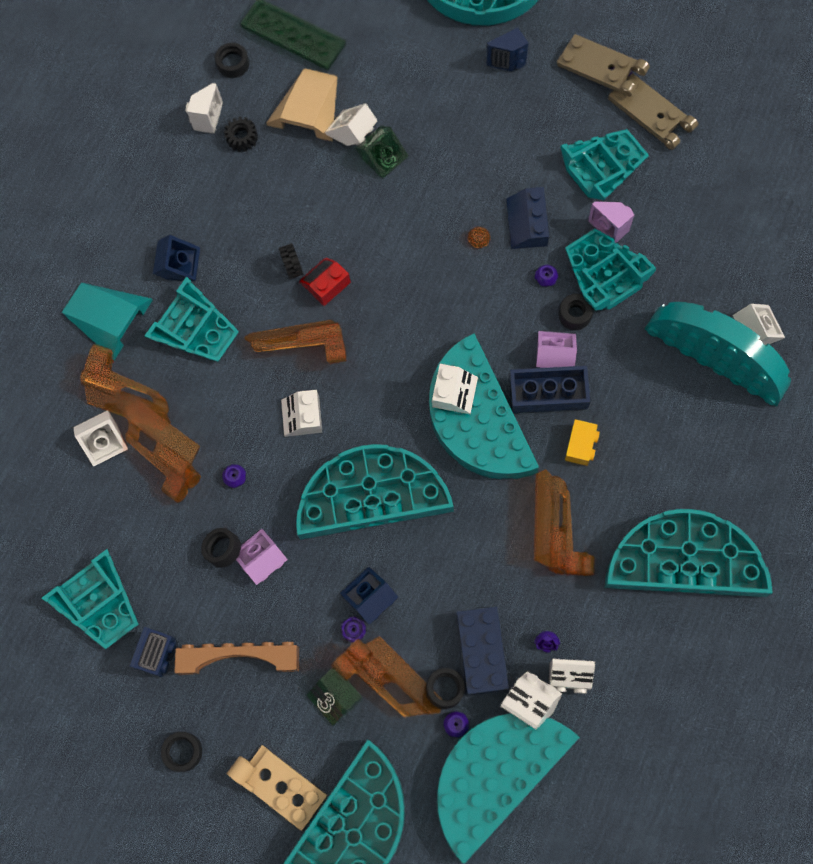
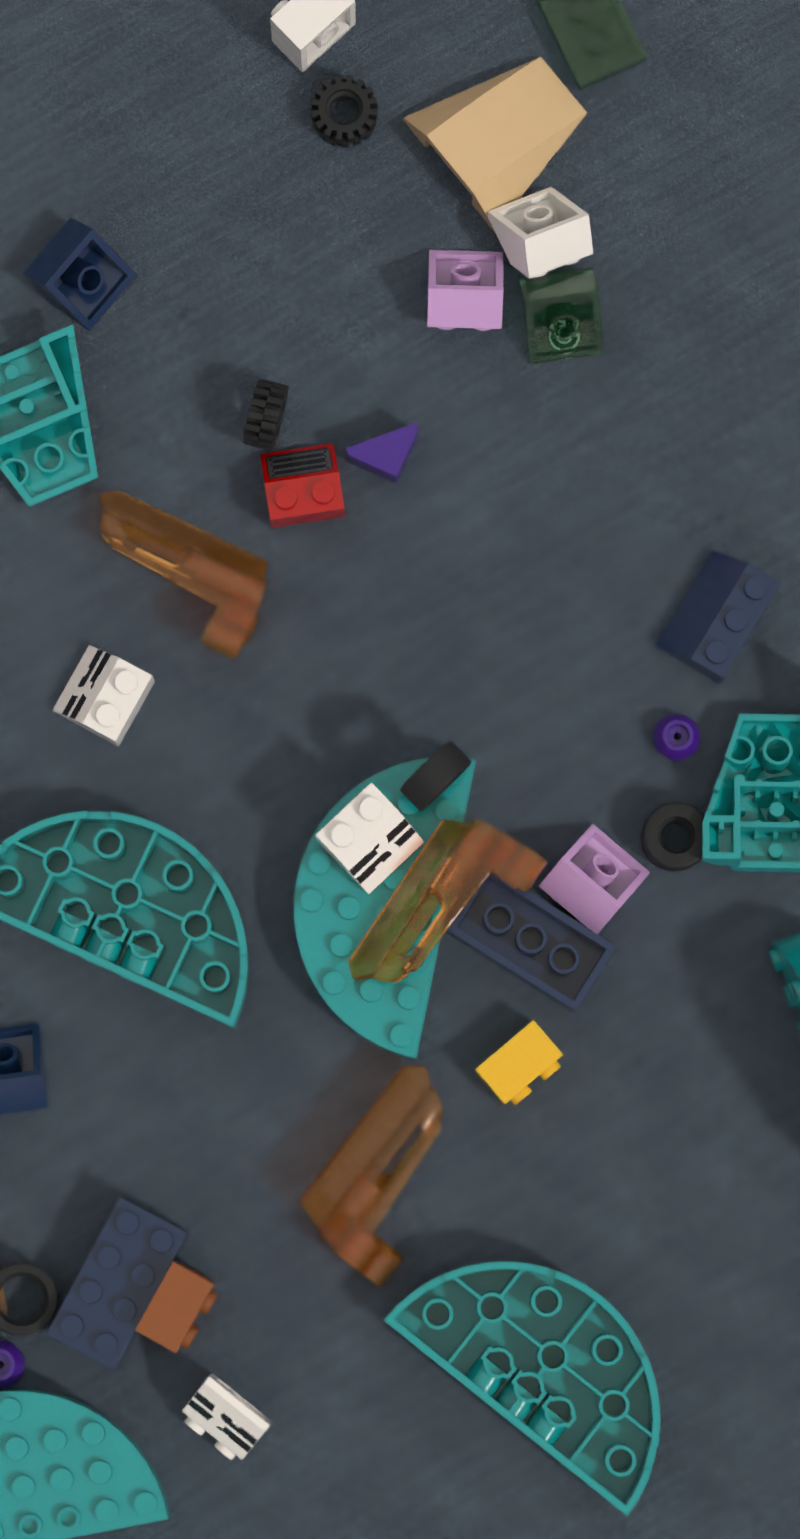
camera: 25 degrees right, 10 degrees up
(337, 166) = (465, 289): none -> lavender slope
(349, 246) = (385, 453): none -> dark purple slope
(463, 344) = (435, 775): none -> black tyre
(476, 241) = (614, 600): clear orange plate -> none
(497, 375) = (447, 874): none -> clear orange panel
(515, 641) = (176, 1307): none -> dark orange piece
(531, 700) = (135, 1413): white slope -> none
(547, 641) = (230, 1339): dark purple plate -> none

